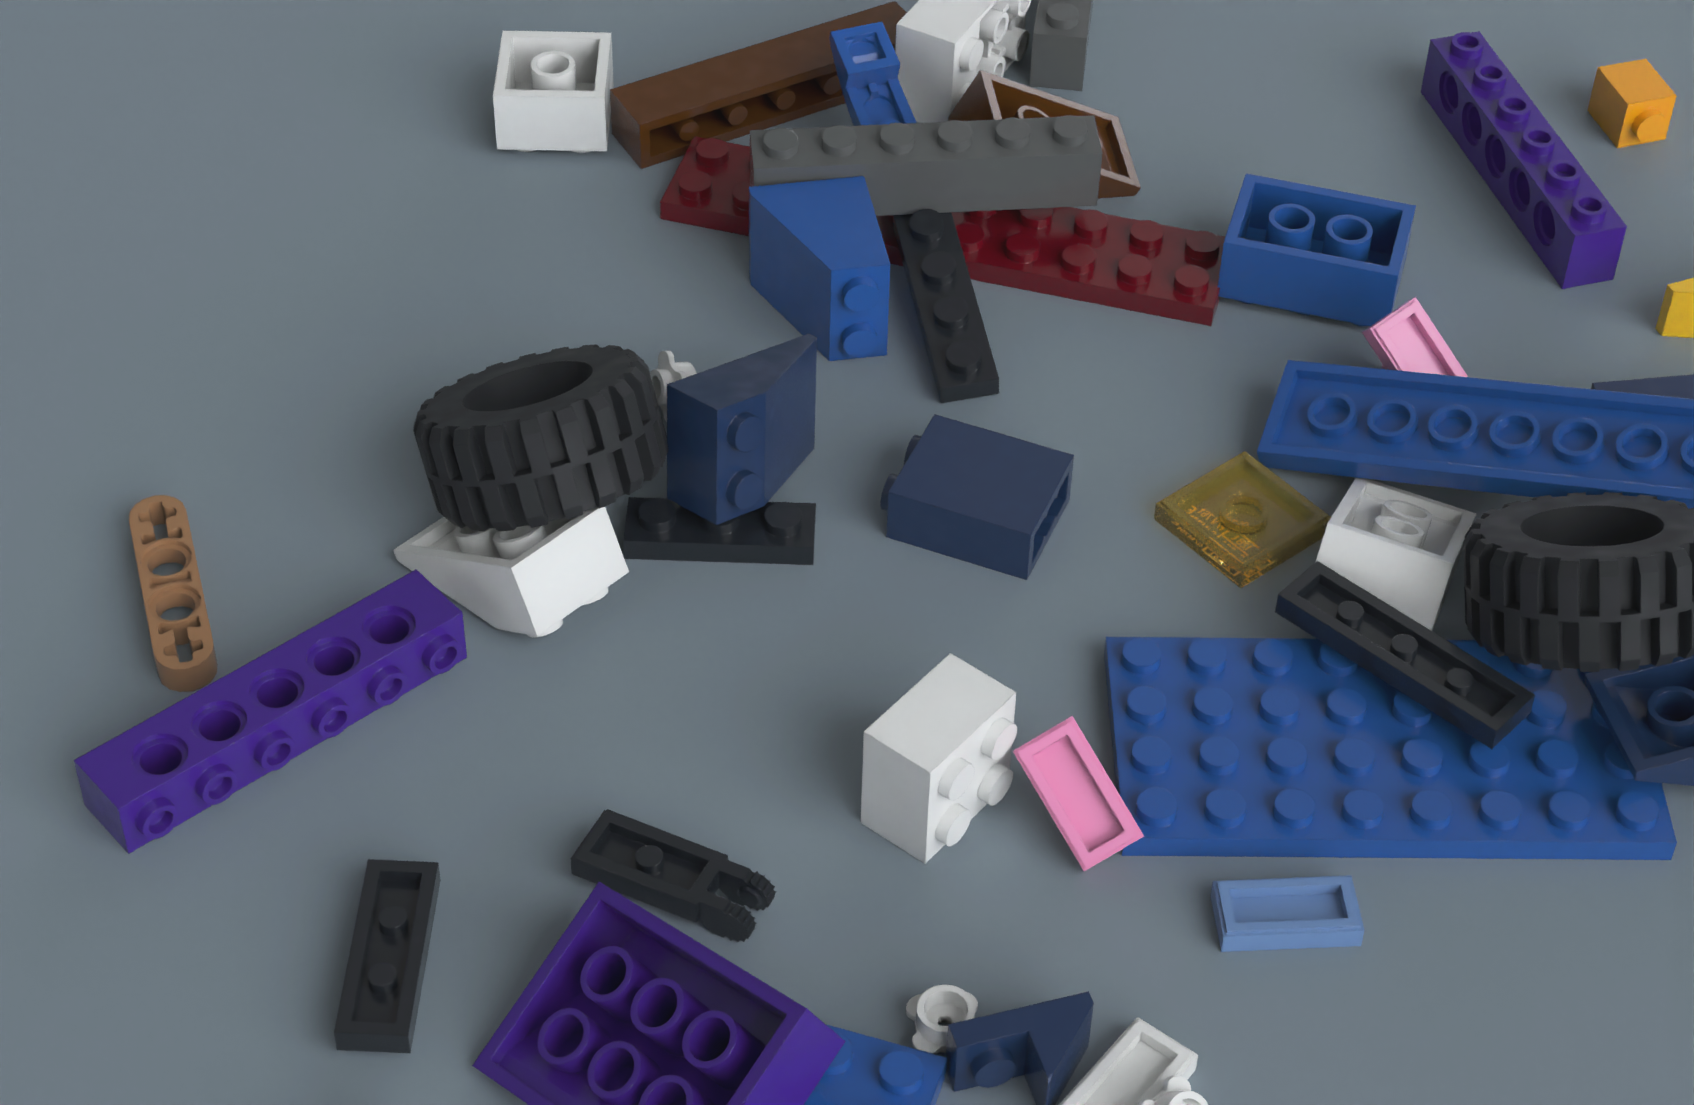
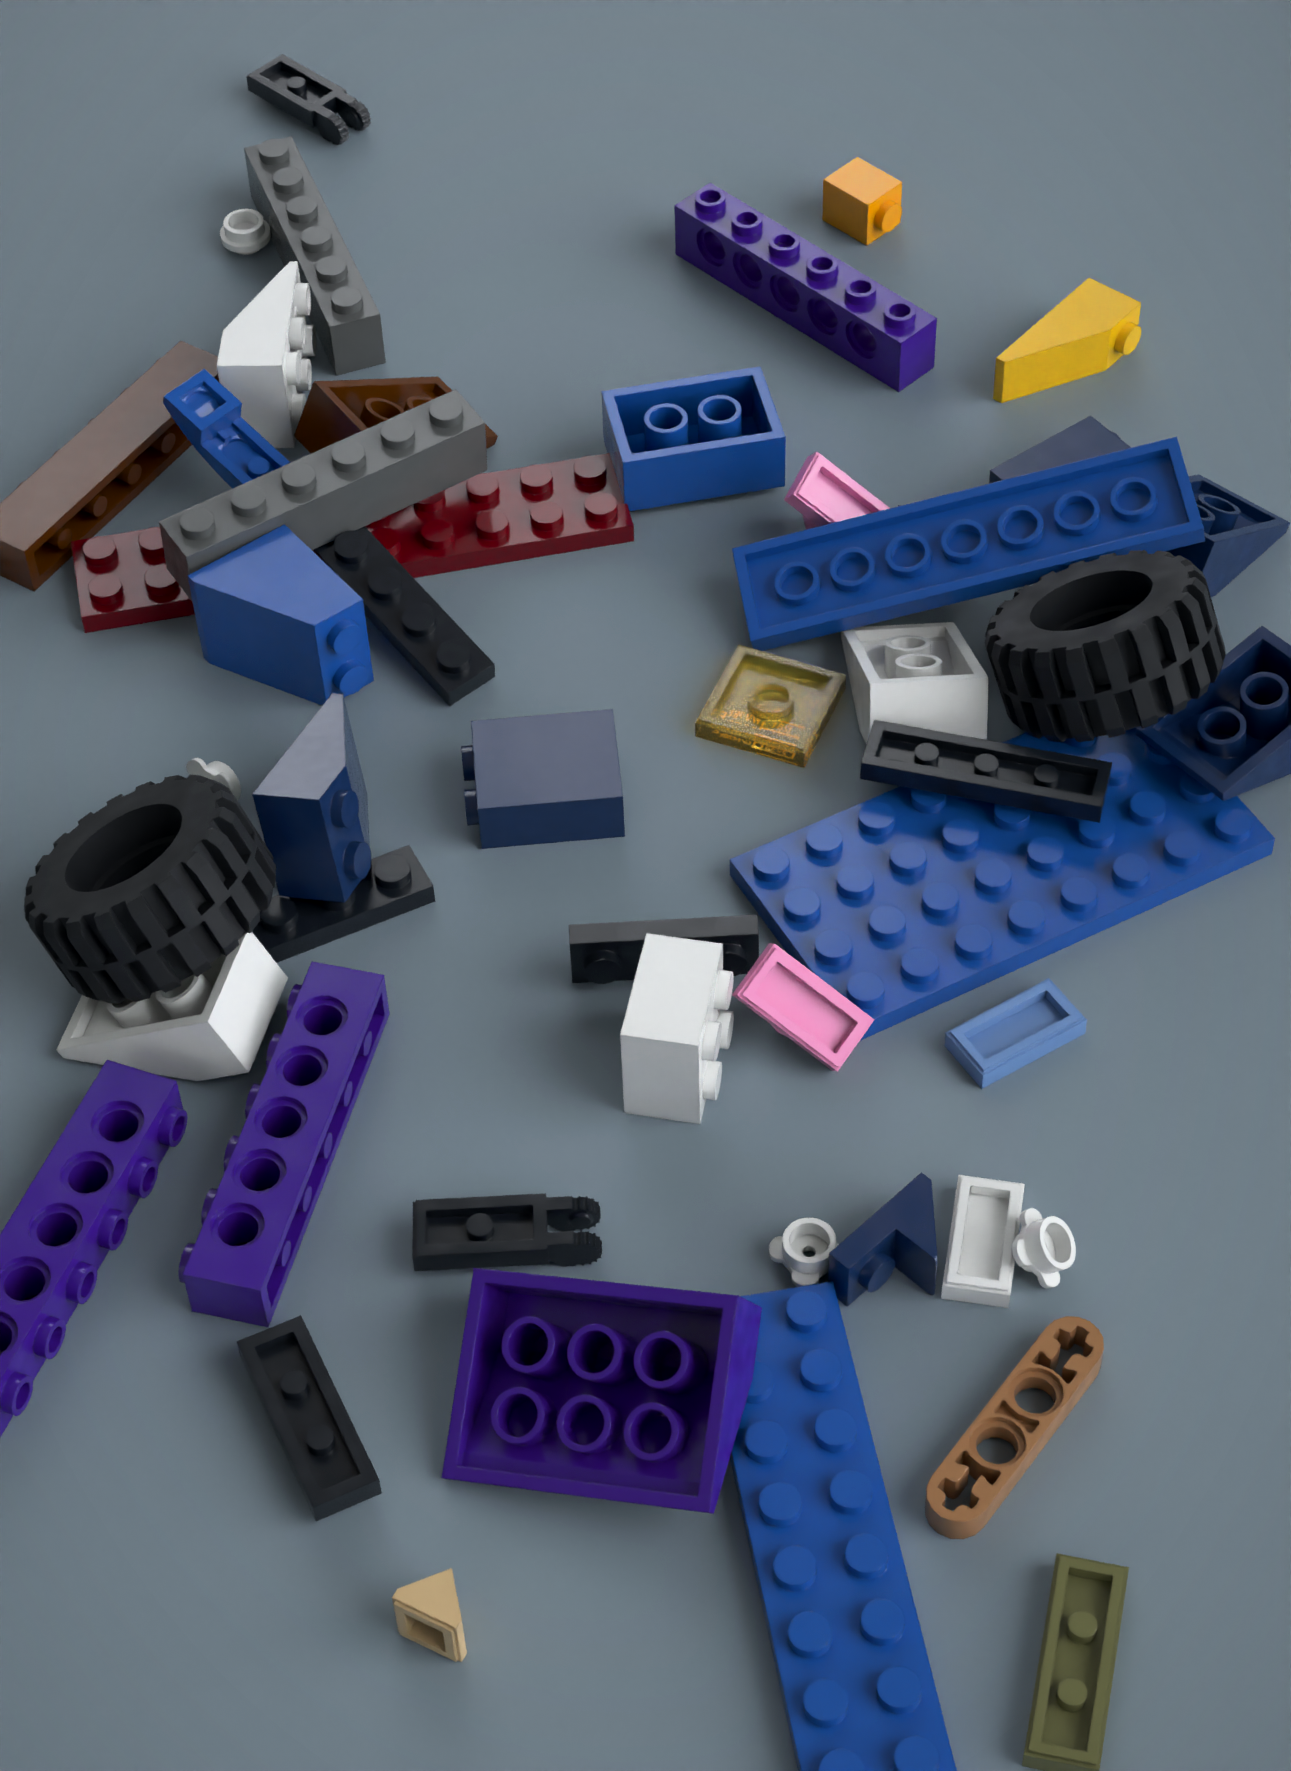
camera: 25 degrees left, 5 degrees up
(529, 712) = (304, 1095): none -> dark purple brick
(1039, 699) = (613, 949): none -> black plate

